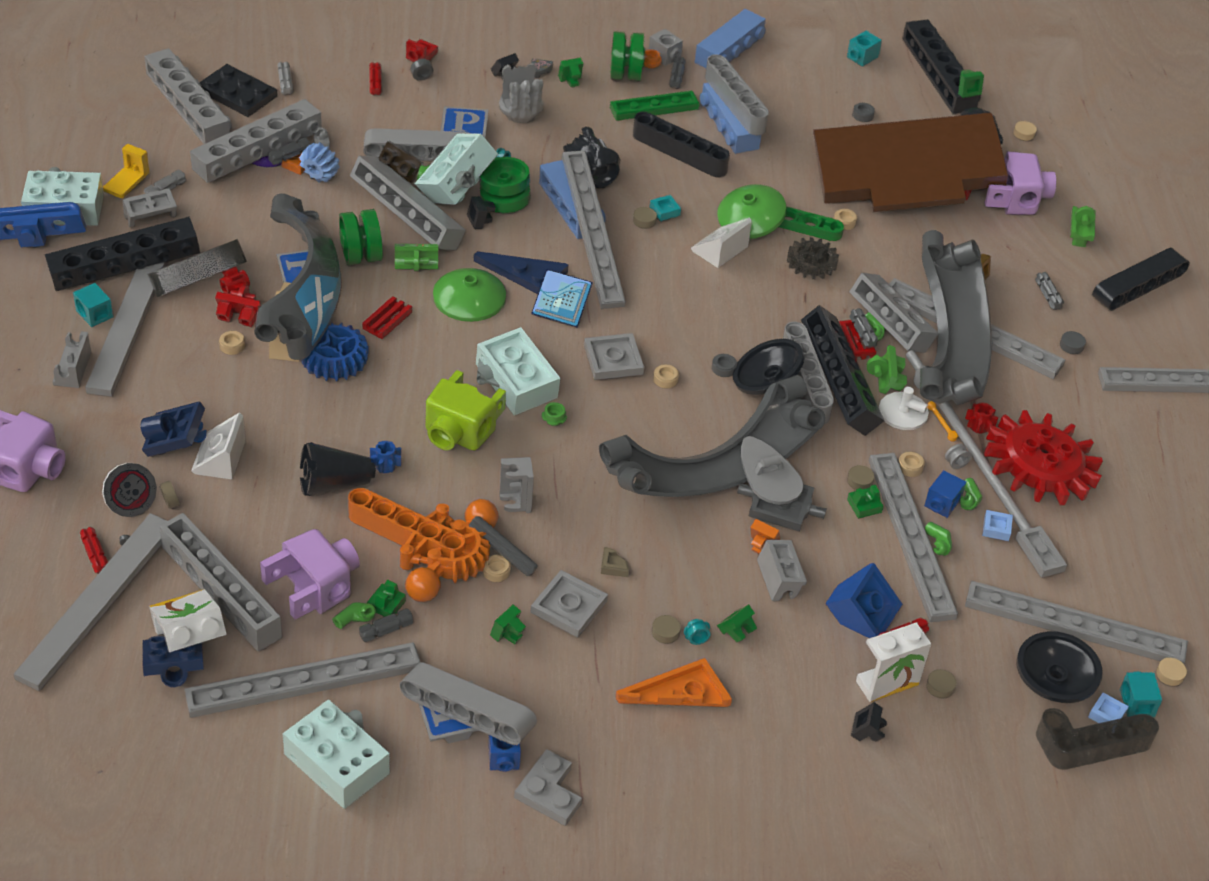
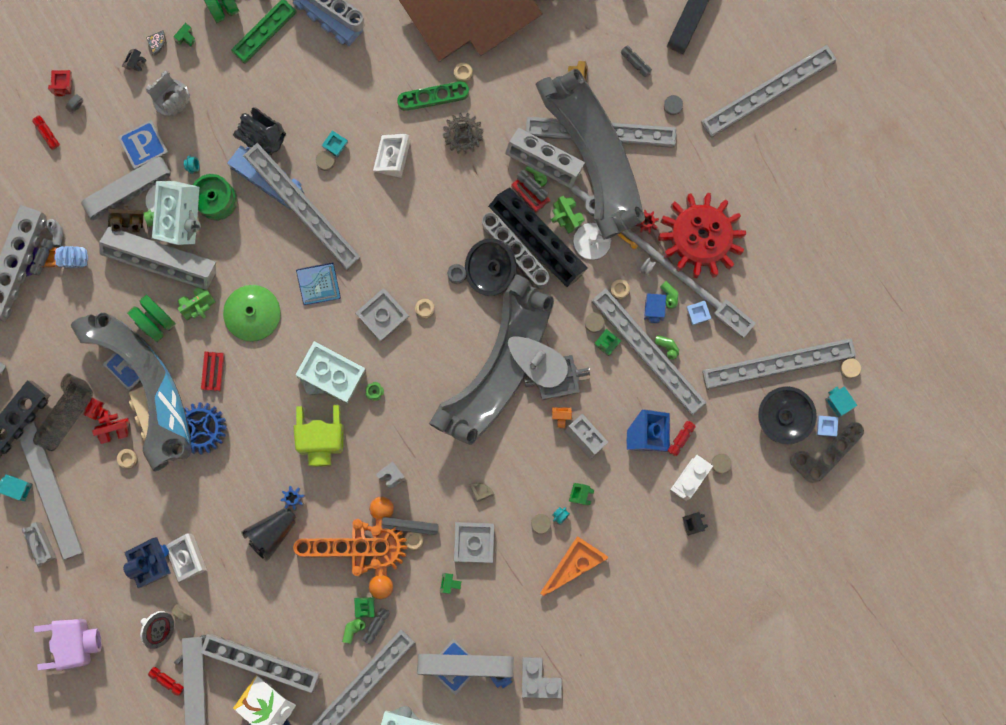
camera: 25 degrees left, 35 degrees up
(315, 568) = (313, 618): lavender piece -> none
(478, 212) = (212, 232): black tile -> none
(521, 270) = (276, 268): dark blue wing -> none
(681, 144) = (315, 74): black beam -> none
(755, 201) = (408, 114): bright green dish -> none

